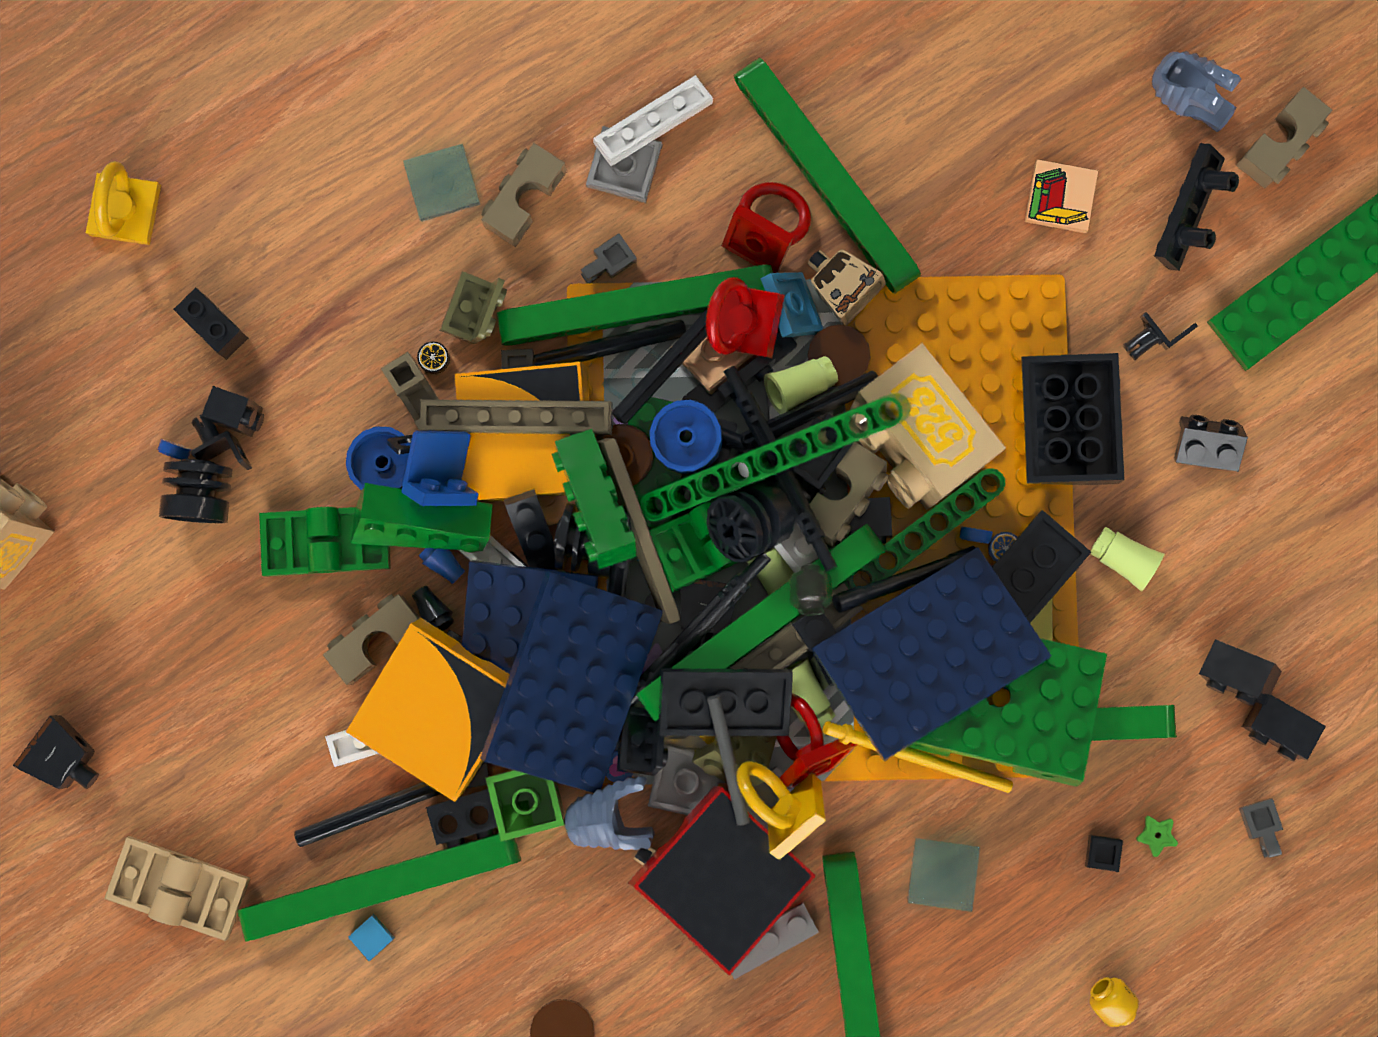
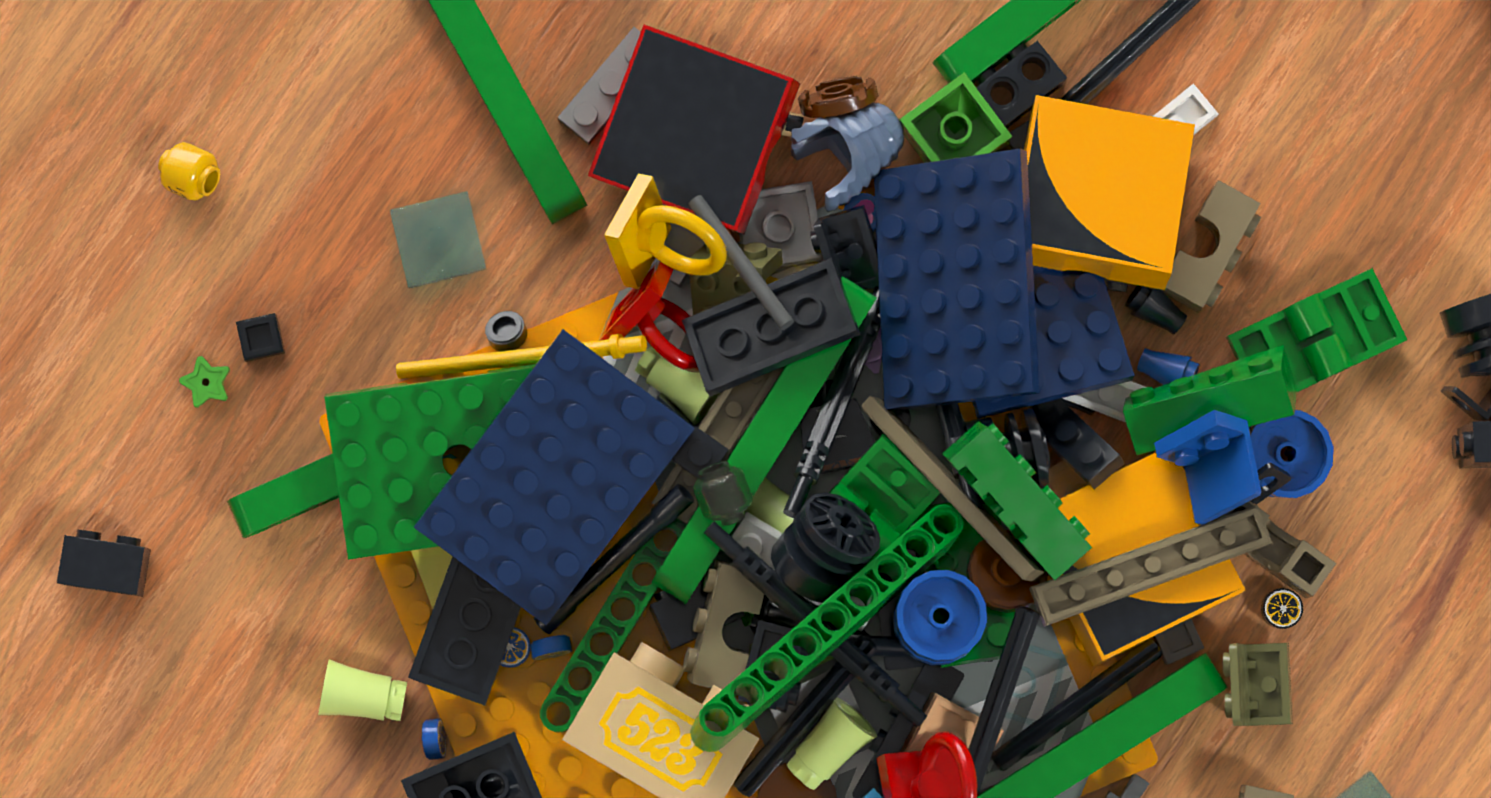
camera: 155 degrees right, 0 degrees up
(603, 861) = (838, 97): none -> reddish brown tile
(919, 784) = (506, 331): none -> tile
(1084, 504) = (434, 739): none -> blue tile
(1240, 673) = (179, 606): black brick -> none
(1262, 821) = (90, 445): dark grey plate -> none

